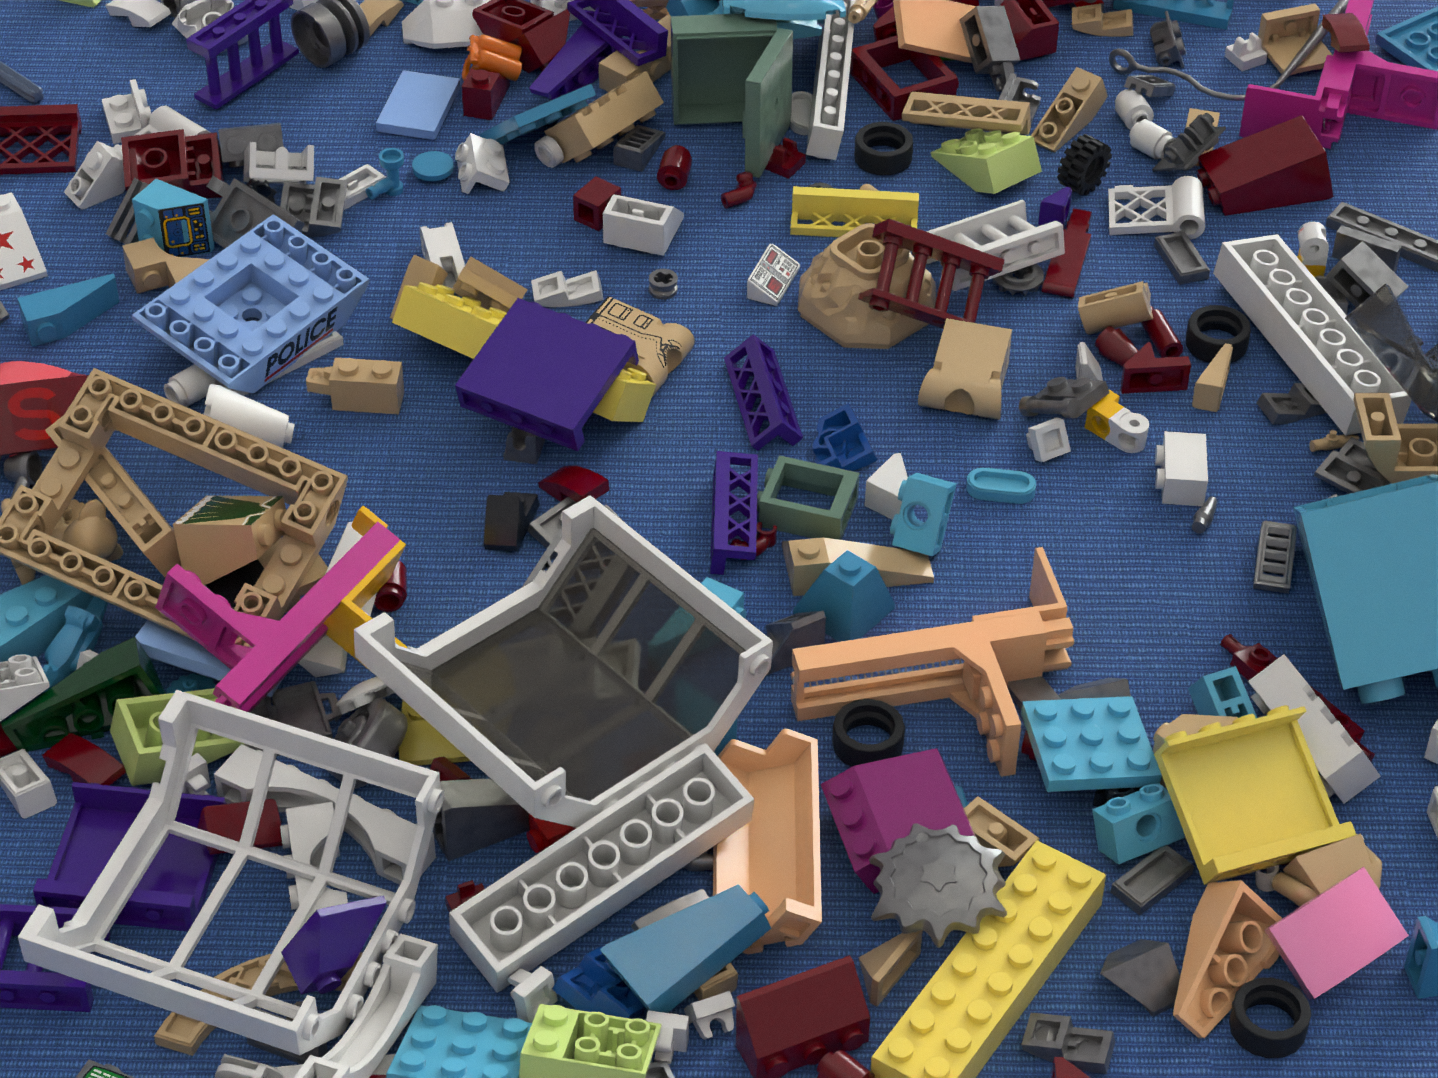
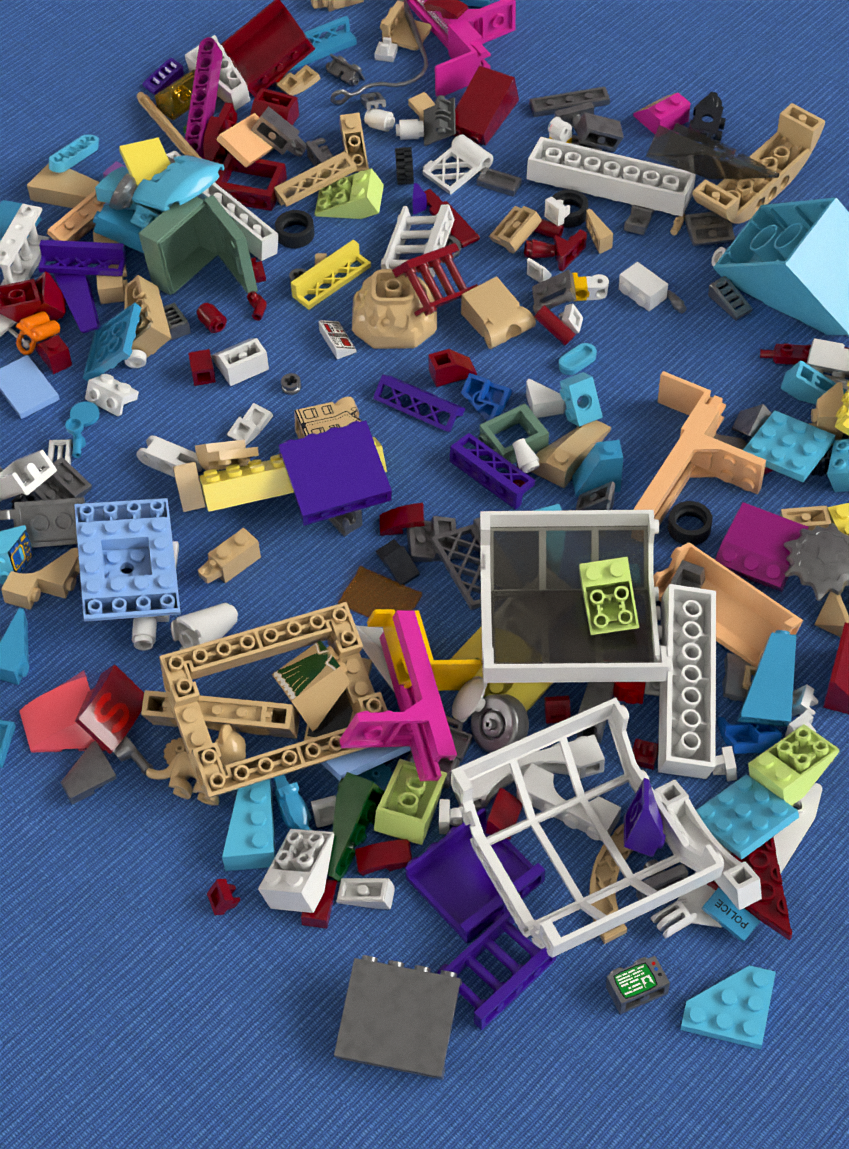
camera: 45 degrees left, 10 degrees up
(448, 541) = (374, 591): none -> clear orange piece
(628, 700) = (608, 596): none -> yellowish green slope
(765, 777) = (689, 575): none -> flat silver panel
(777, 522) = (525, 456): none -> white cone
(839, 381) = (449, 367): none -> dark red slope
(1015, 428) = (554, 325): none -> dark red piece
(1188, 319) = (556, 211): none -> white tile

